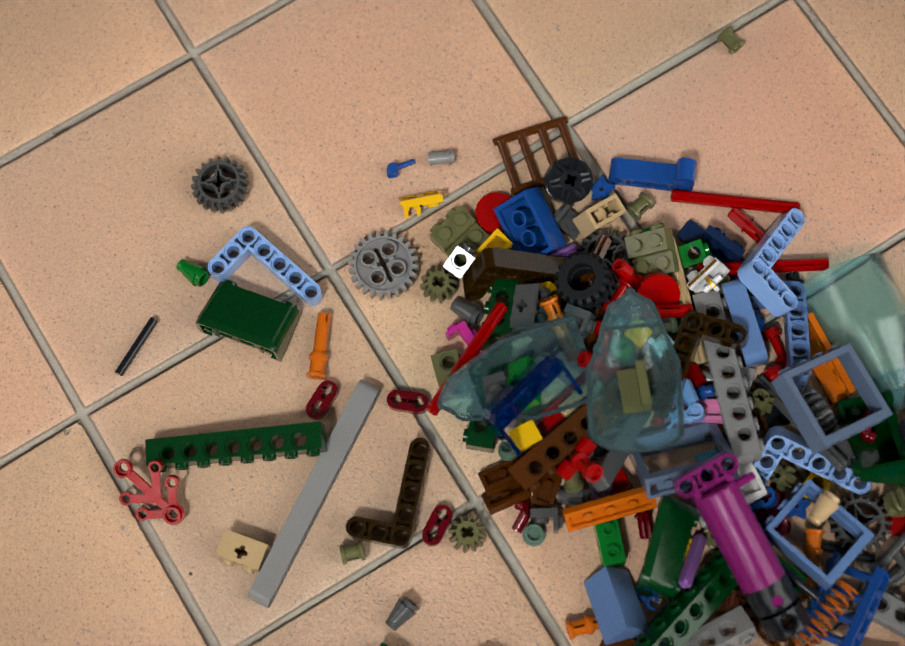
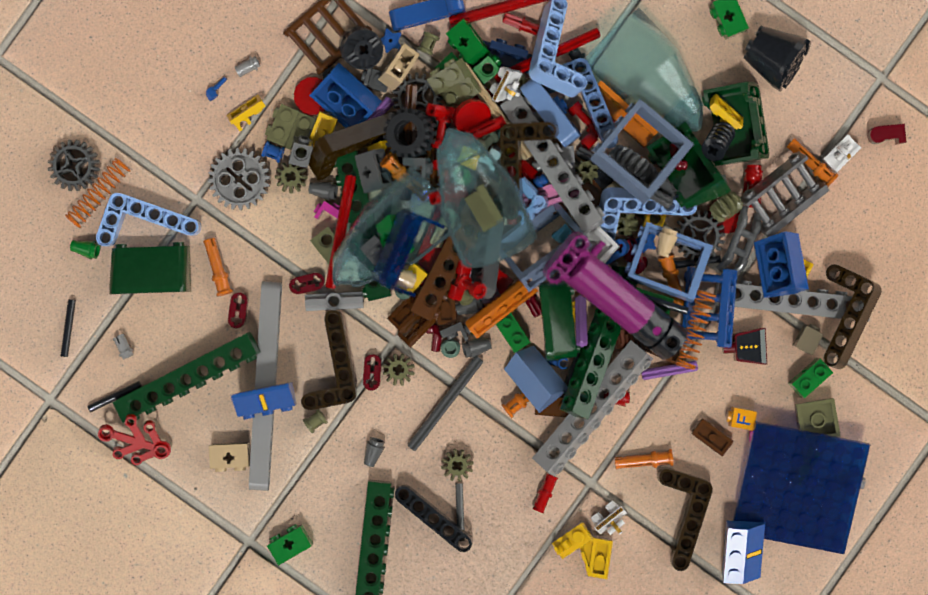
camera: 35 degrees left, 15 degrees up
(140, 438) = (115, 396): none -> black bar
(184, 388) = (123, 346): none -> light grey pin
(268, 203) = (69, 217): none -> orange piece
(307, 501) = (264, 400): none -> blue slope
(431, 252) = (273, 151): none -> blue bush
(442, 436) = (347, 300): none -> light grey piece
(503, 593) = (445, 403): none -> dark grey axle
(517, 431) = (407, 279): none -> tan cone
(562, 544) = (476, 347): none -> dark grey cone
(682, 219) = (476, 48): none -> green brick

